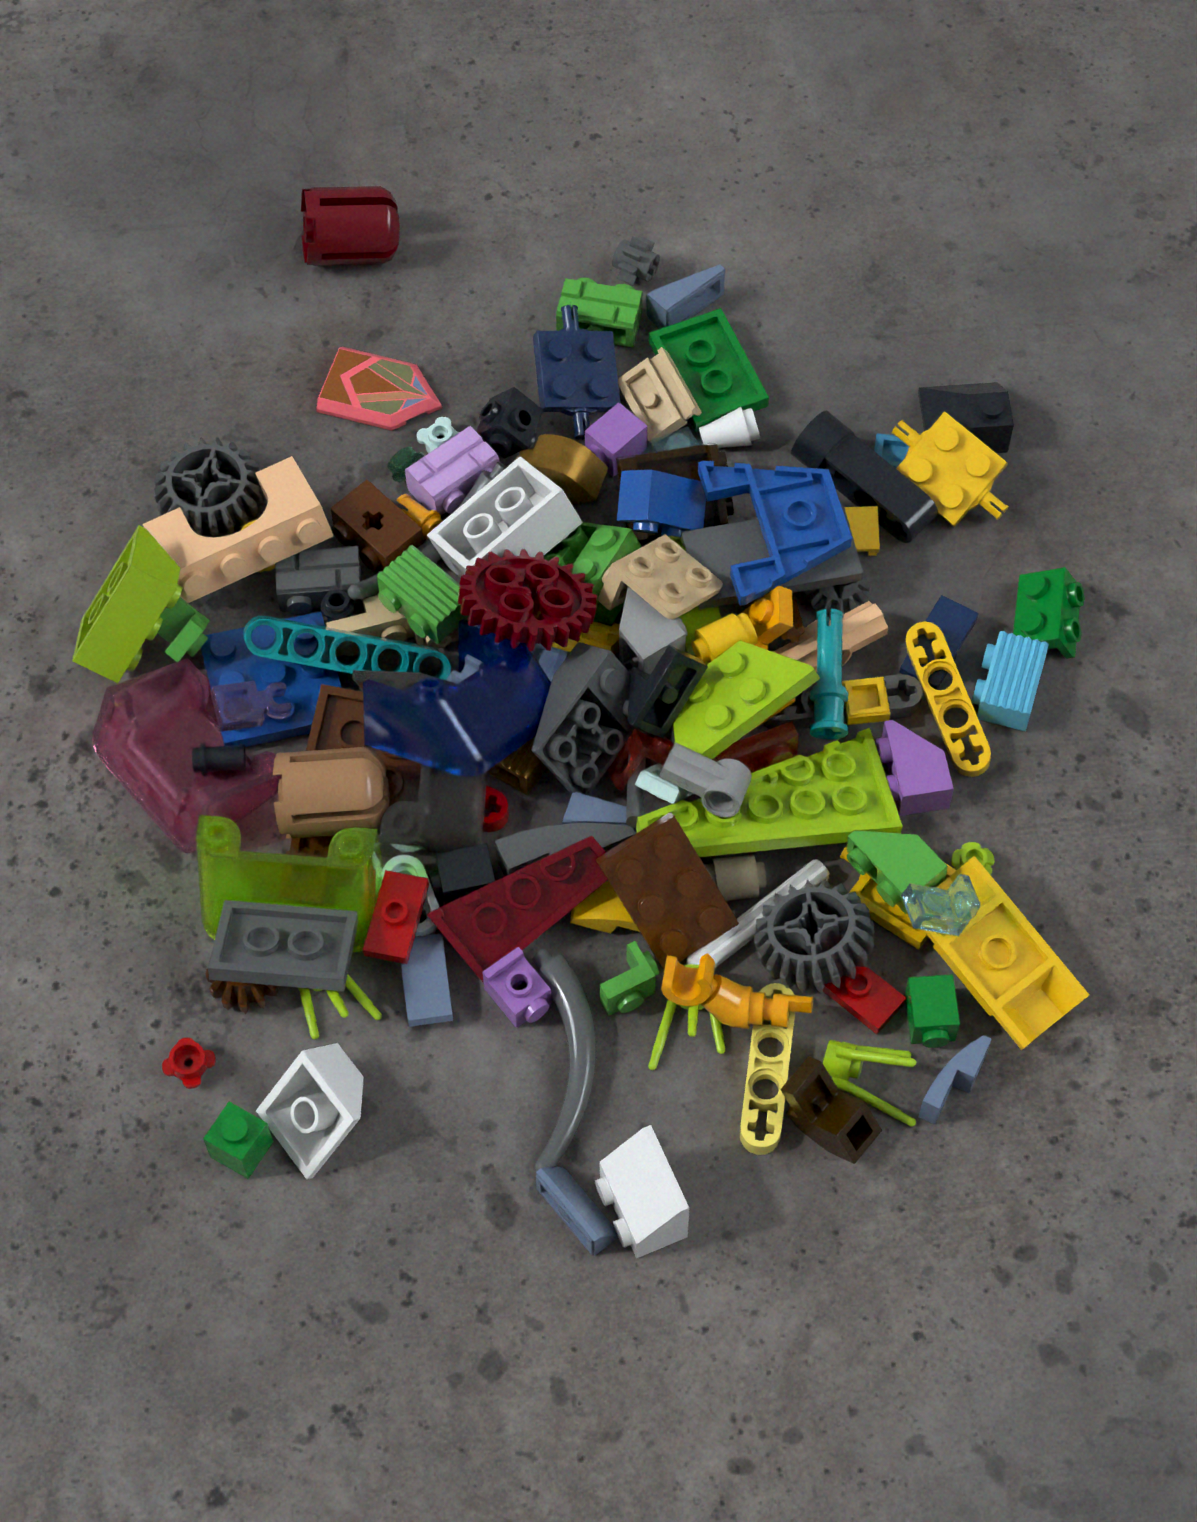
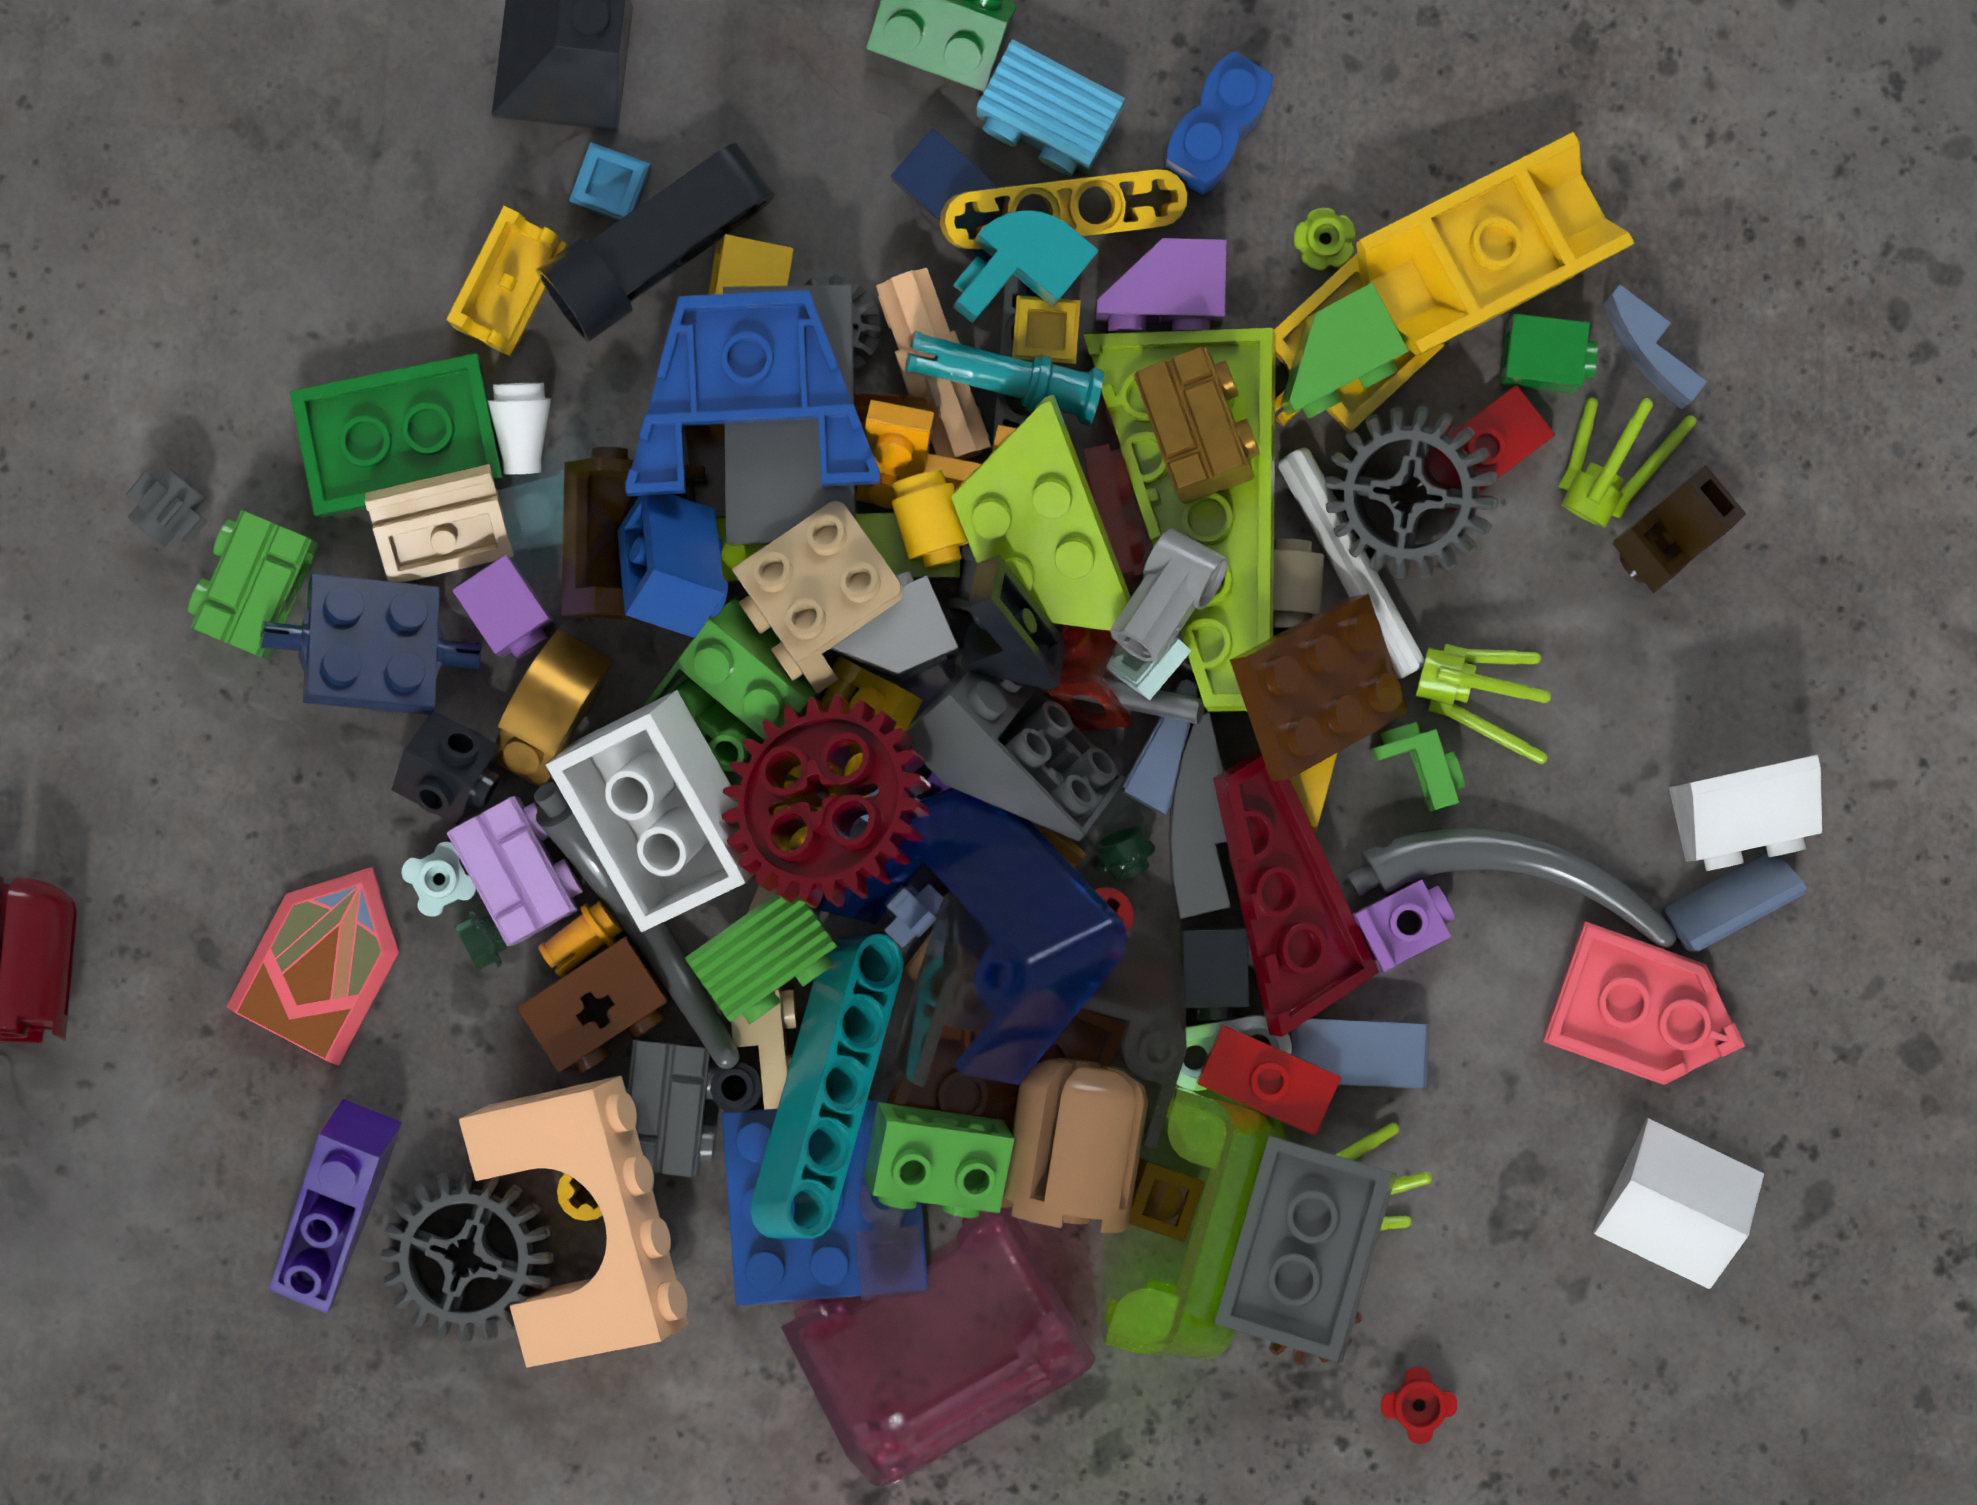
camera: 80 degrees left, 25 degrees up
(128, 608) = (688, 1410): lime slope -> none
(183, 629) = (736, 1322): bright green bracket -> none
(218, 758) = (951, 1301): black pin -> none
(238, 1140) = (1559, 1350): green brick -> none
(241, 414) = (334, 1204): none -> dark purple slope
(307, 709) = (938, 1160): none -> bright green brick
(314, 1106) = (1530, 1233): white slope -> none
(356, 1210) = (1681, 1204): none -> white slope
(489, 1159) = (1639, 1008): none -> coral tile
(532, 812) = (1124, 853): none -> clear green plate
(685, 297) = (261, 459): sand blue slope -> none
(726, 999) = (1492, 634): light orange piece -> none
(766, 1068) = (1582, 590): light yellow beam -> none
(807, 396) = (504, 283): none -> yellow hinge
(824, 781) = (1196, 425): none -> pearl gold brick
(911, 663) = (1033, 248): none -> teal brick
(942, 909) = (1436, 306): clear light blue bracket -> none
(951, 468) = (670, 106): yellow plate -> none
(1036, 780) = (1227, 112): none -> blue brick

